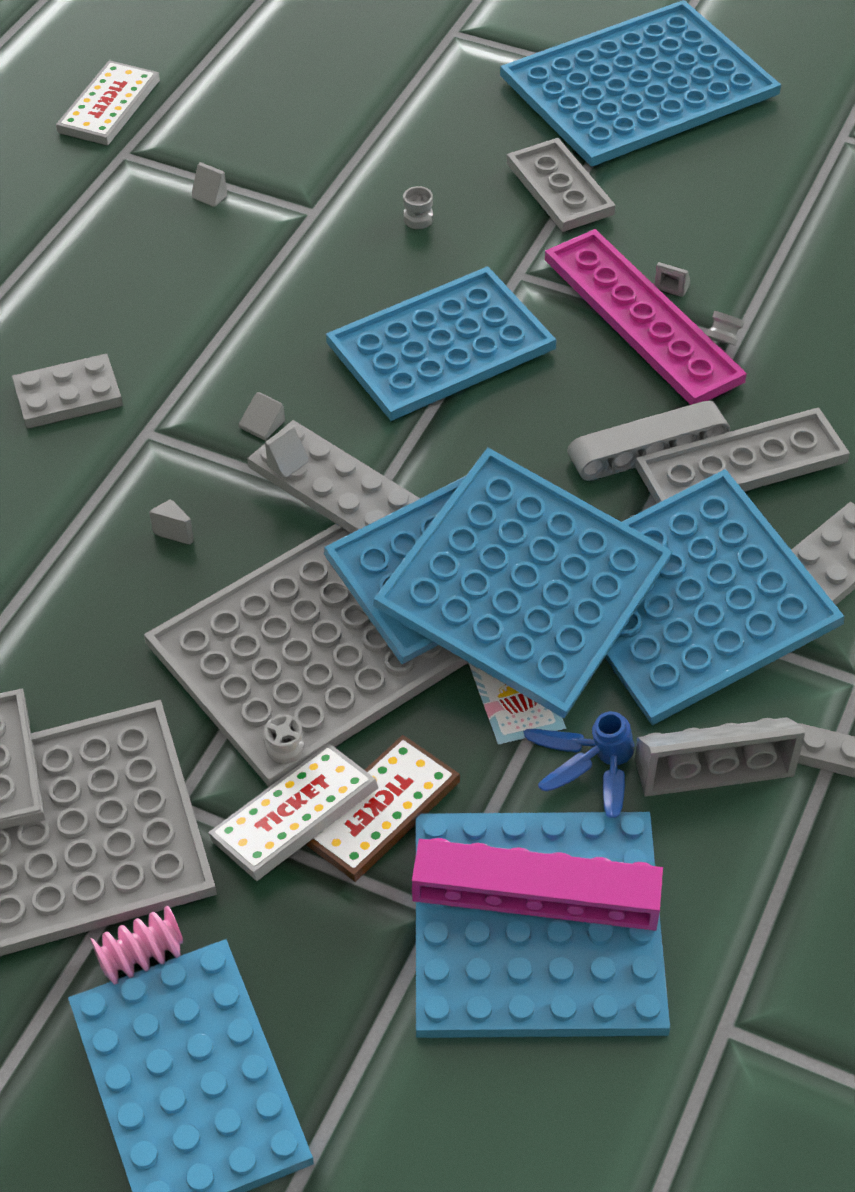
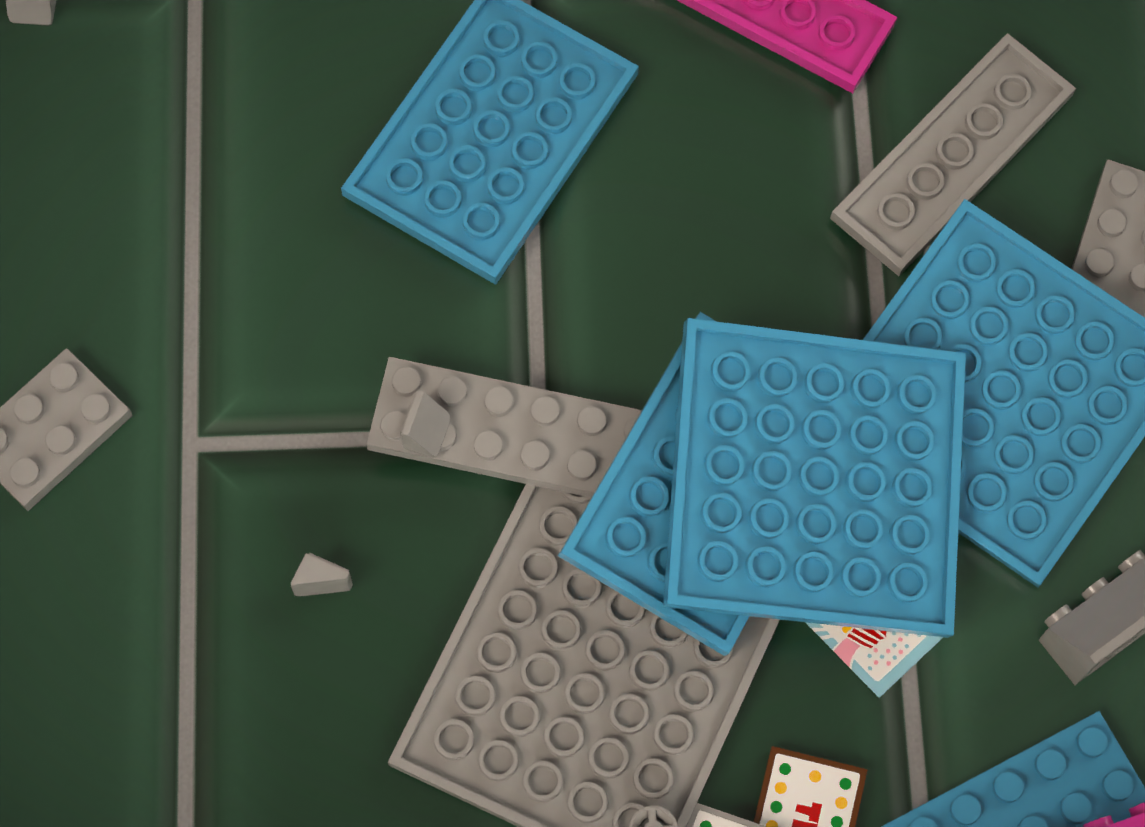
camera: 30 degrees left, 20 degrees up
(262, 416) = (331, 356): light grey slope -> none
(611, 742) = (995, 687): blue plant -> none
(617, 447) = (829, 175): light grey beam -> none

